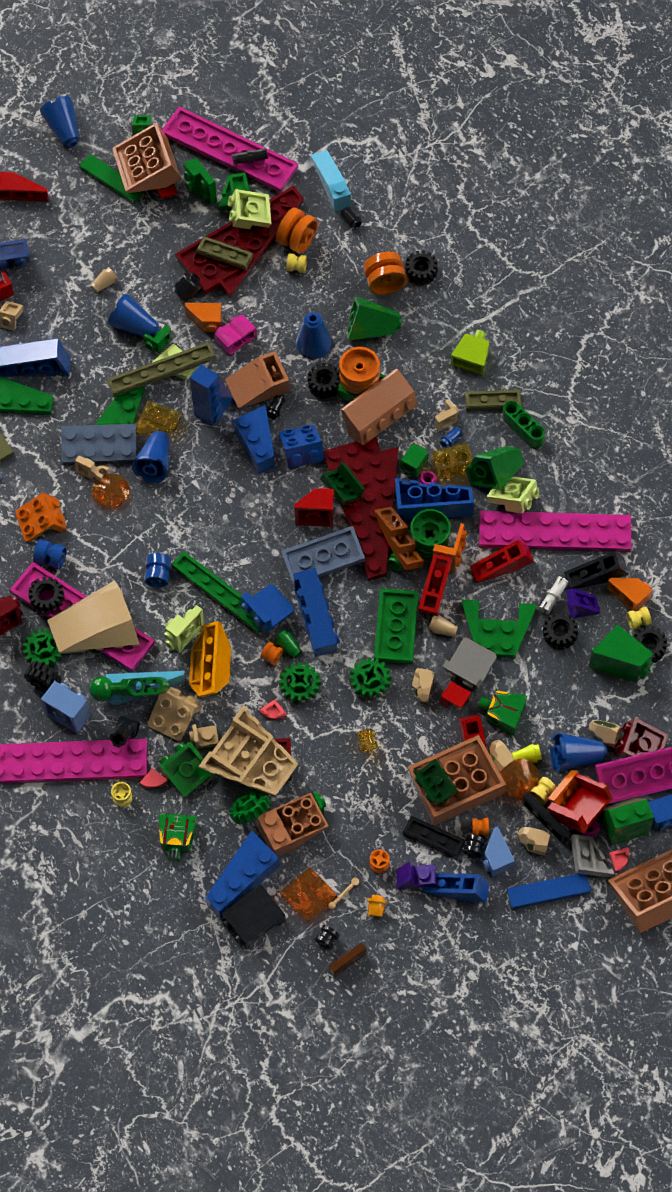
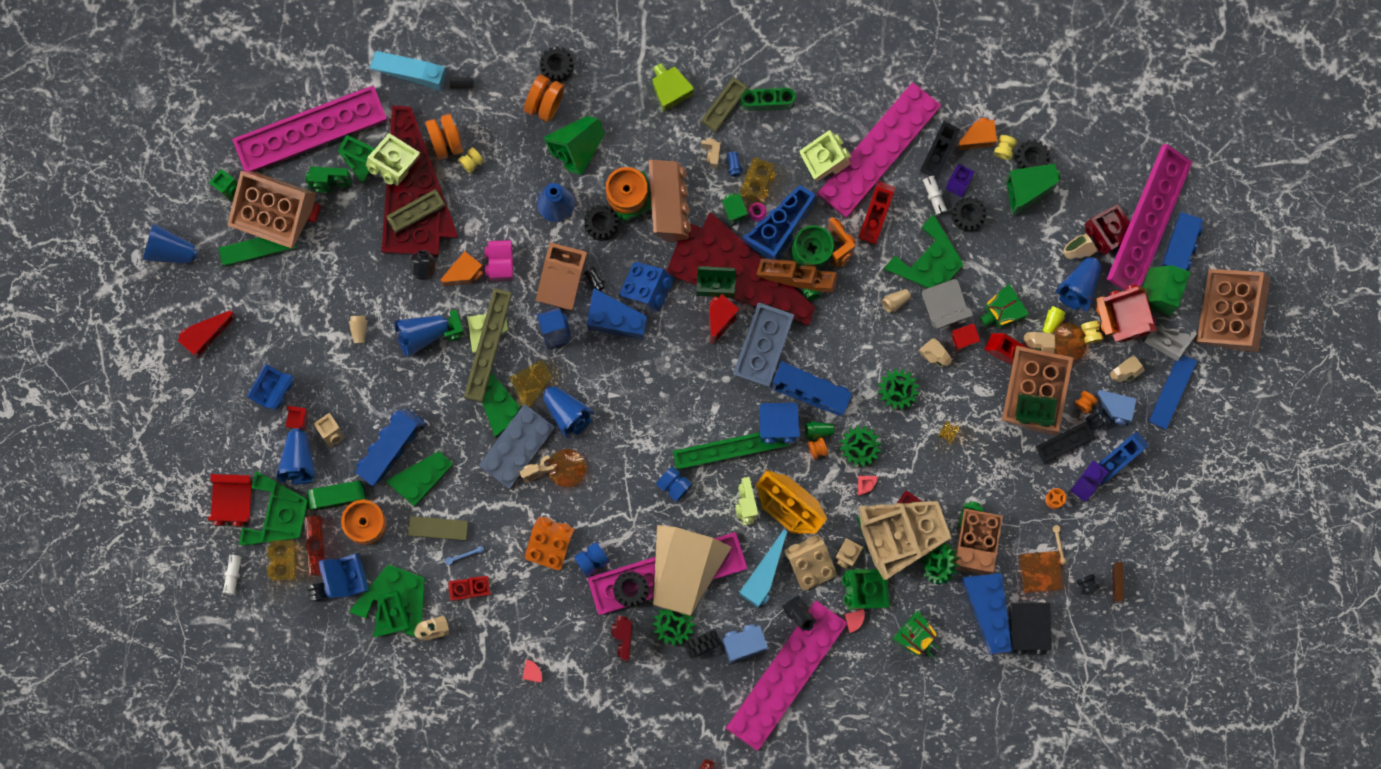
camera: 55 degrees left, 15 degrees up
(103, 688) = (752, 604): green beam -> none
(121, 789) = (853, 653): light yellow wheel -> none
(249, 156) = (336, 119): black pin -> none
(376, 905) = (1090, 528): light orange hose -> none
(396, 626) = (867, 335): green plate -> none
(435, 585) = (863, 280): red slope -> none
(494, 467) = (793, 152): green slope -> none
(546, 818) = (1115, 348): black tile -> none
(619, 859) = (1186, 319): coral tile -> none

